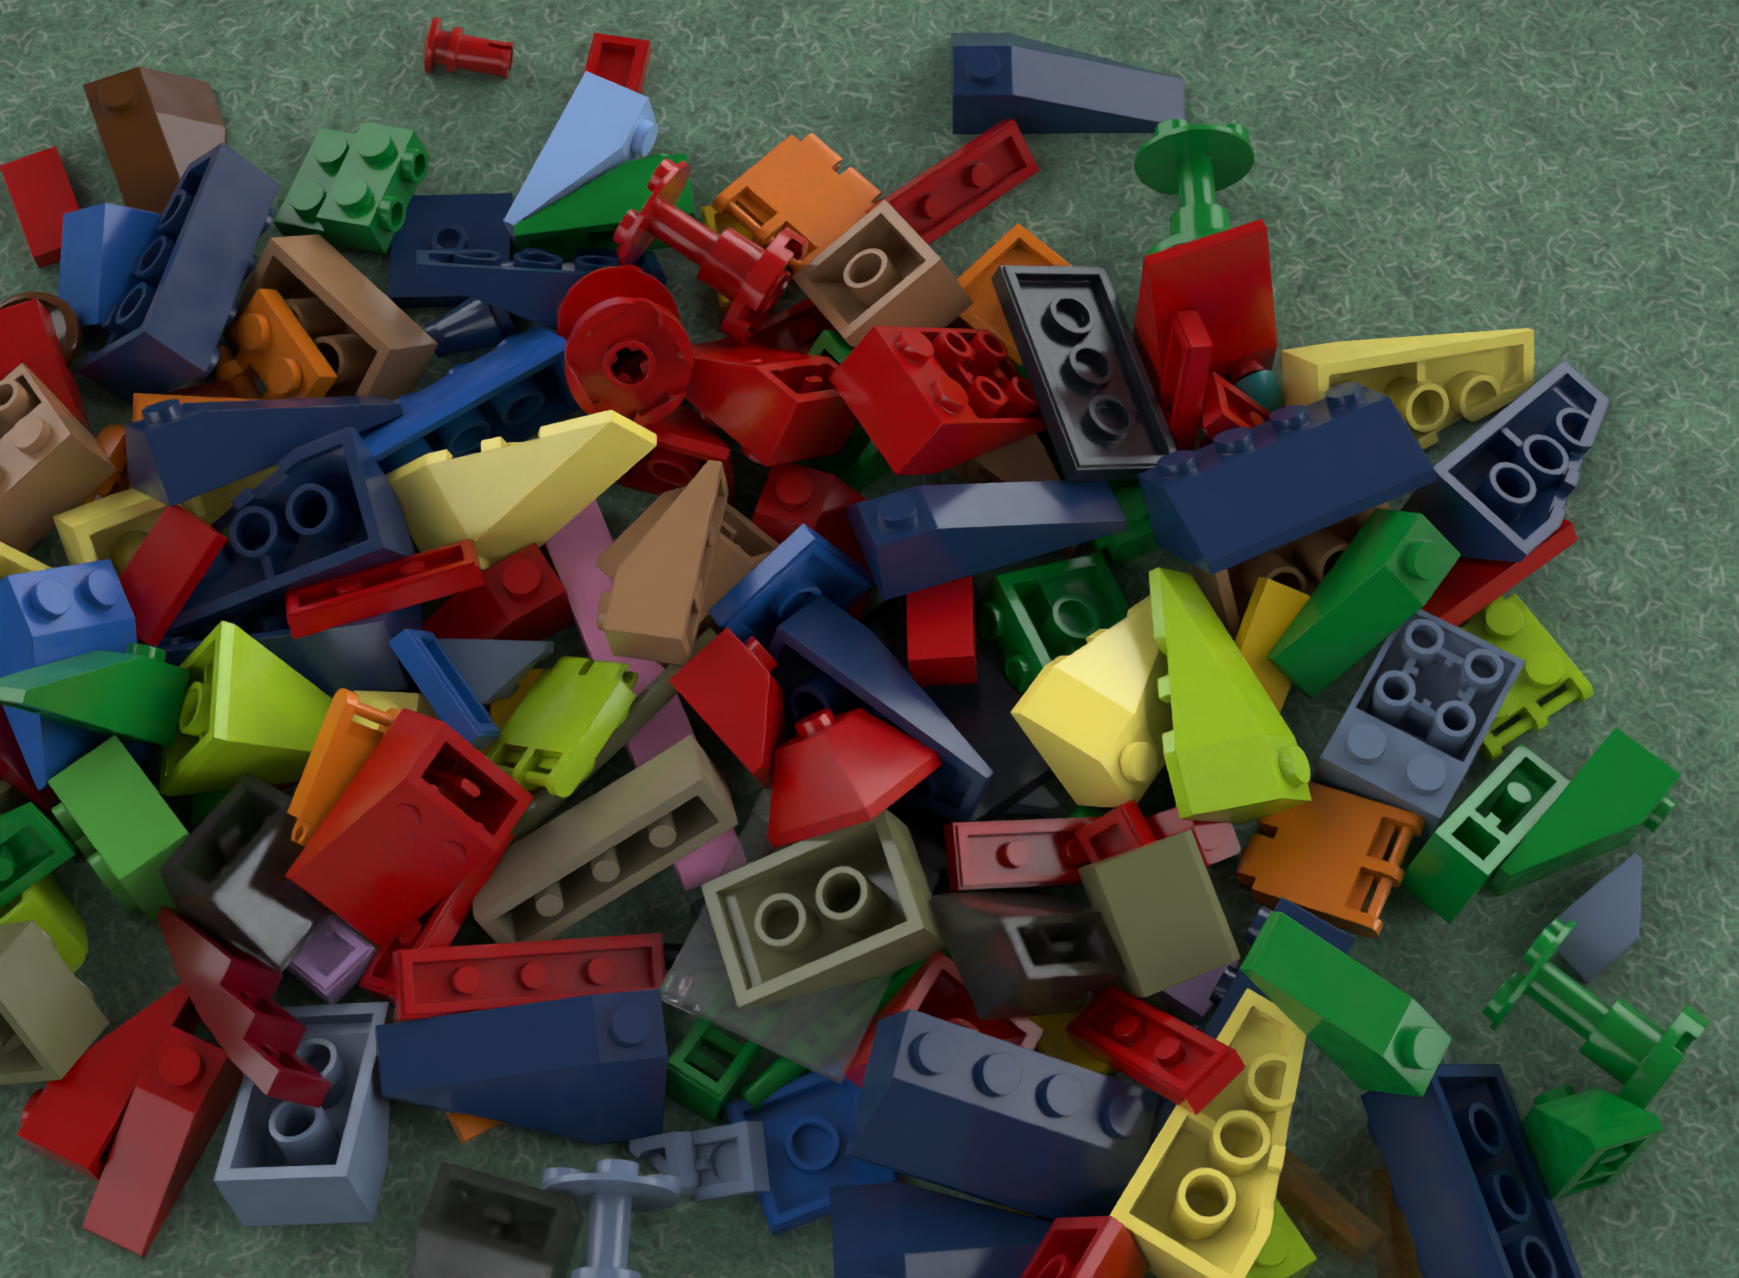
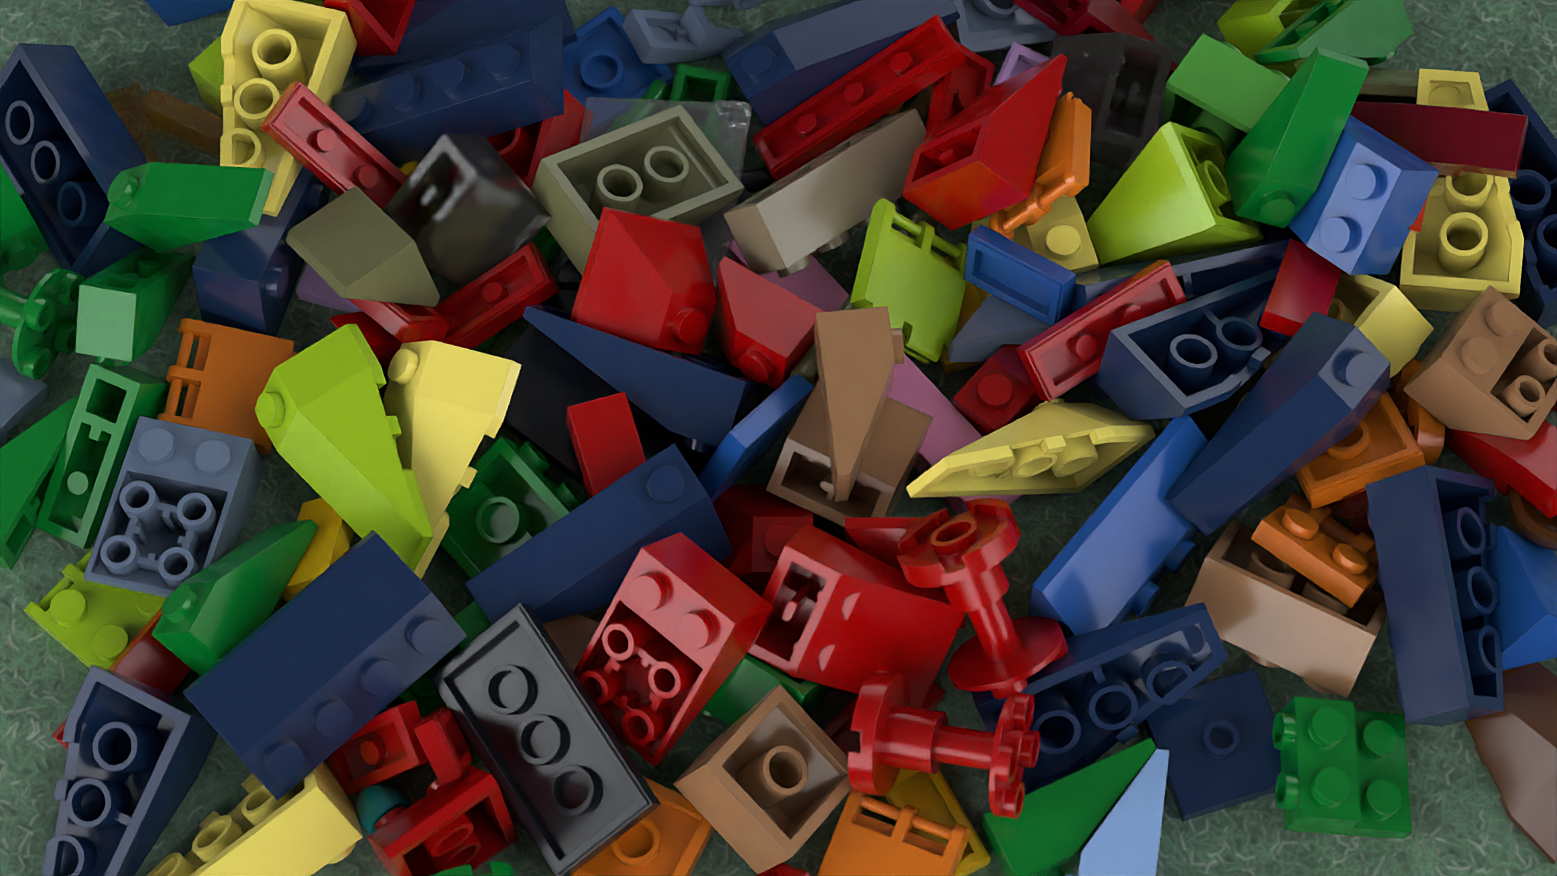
camera: 165 degrees right, 0 degrees up
(1444, 939) = (129, 304): none -> green slope

